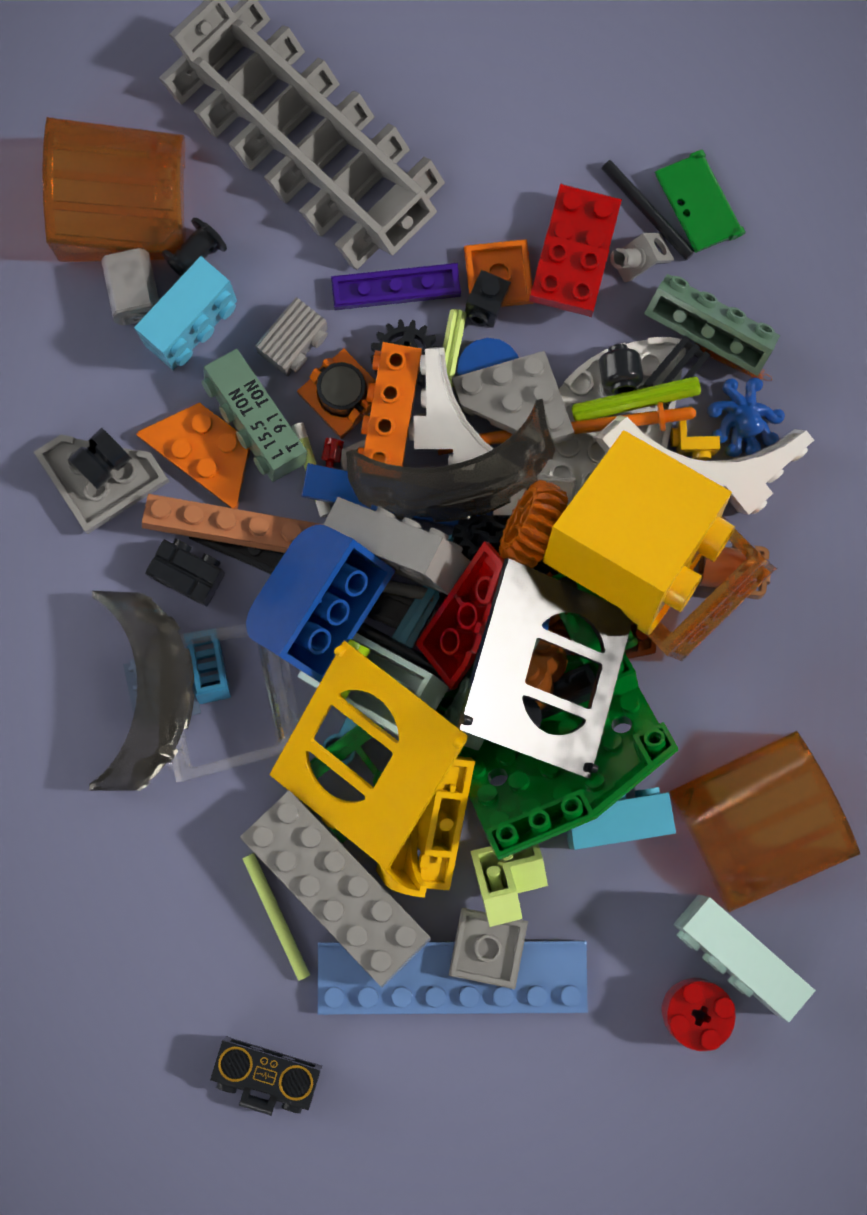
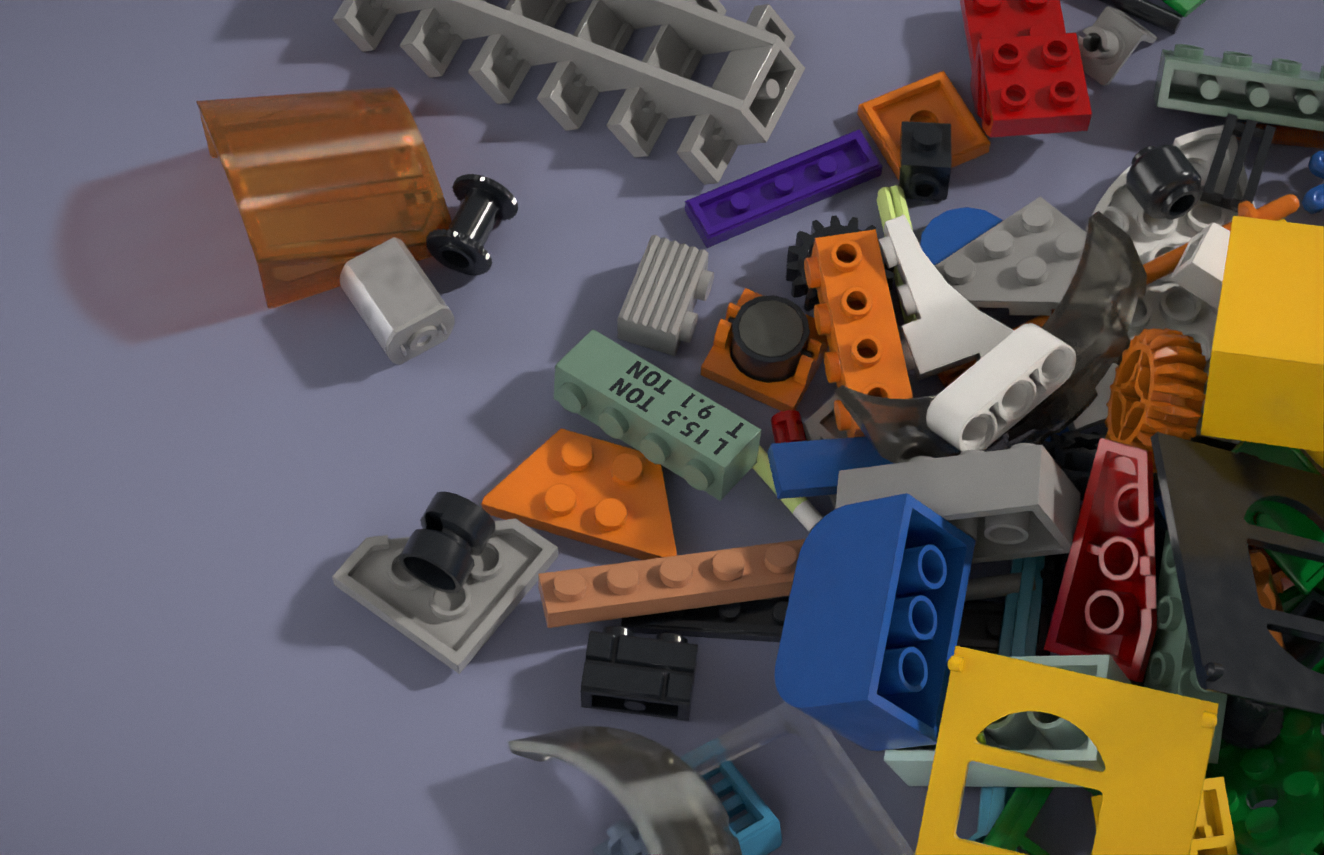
camera: 20 degrees left, 20 degrees down
(187, 314) = (499, 306): medium azure brick -> none
(448, 482) = (1001, 388): none -> white beam
(636, 399) = (1212, 207): lime axle -> none

